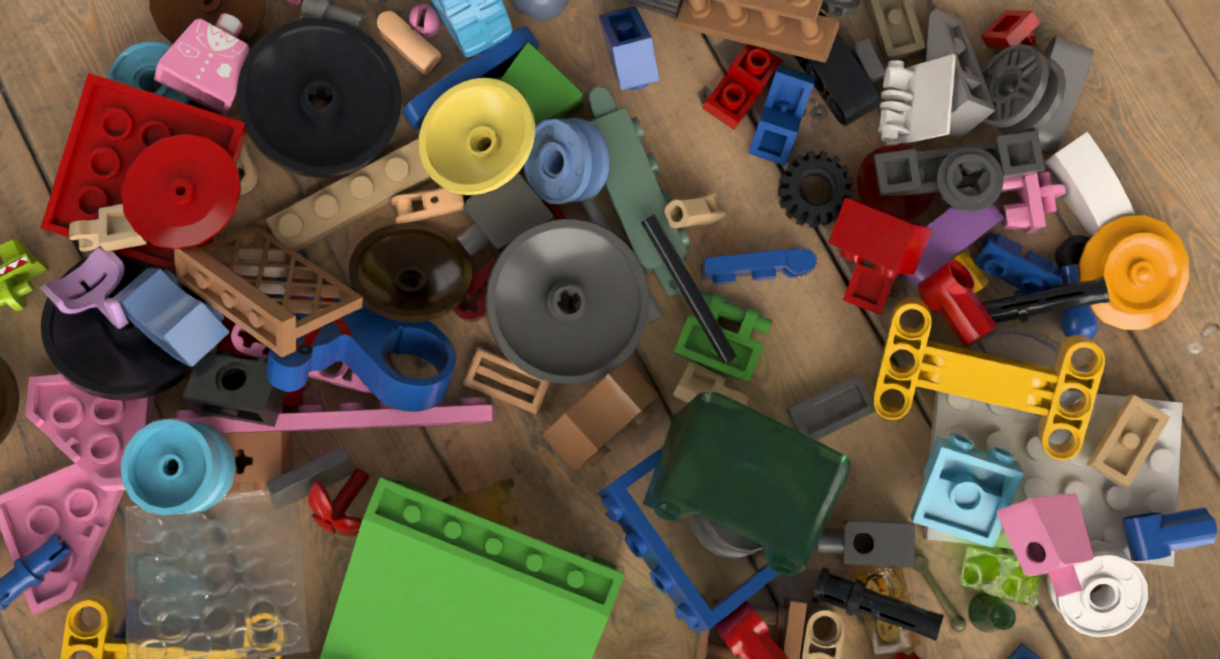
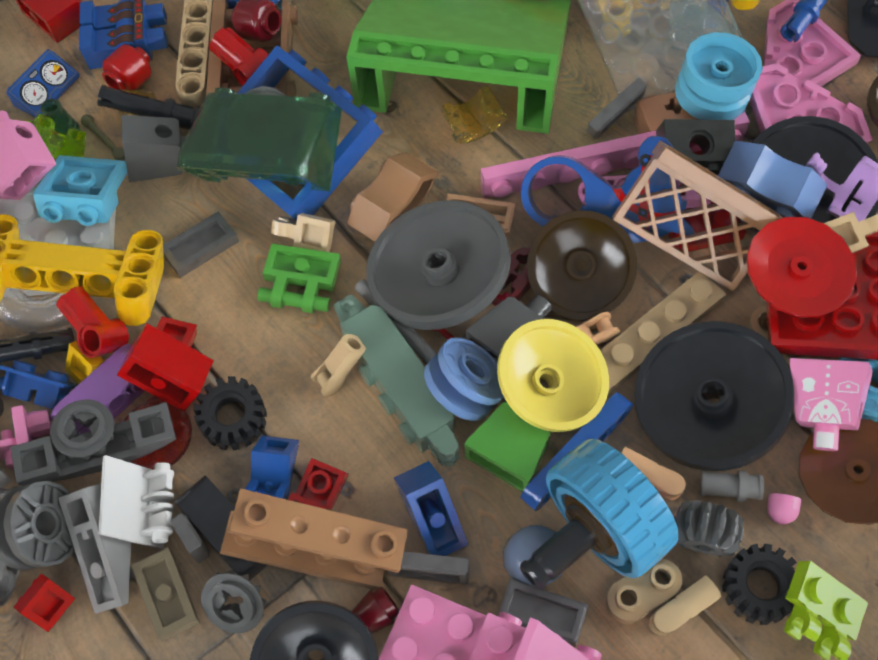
camera: 170 degrees right, 20 degrees down
(331, 514) = (589, 89): red plant -> none
(688, 289) = (335, 295): black bar -> none
(760, 265) = (275, 337): blue hinge -> none

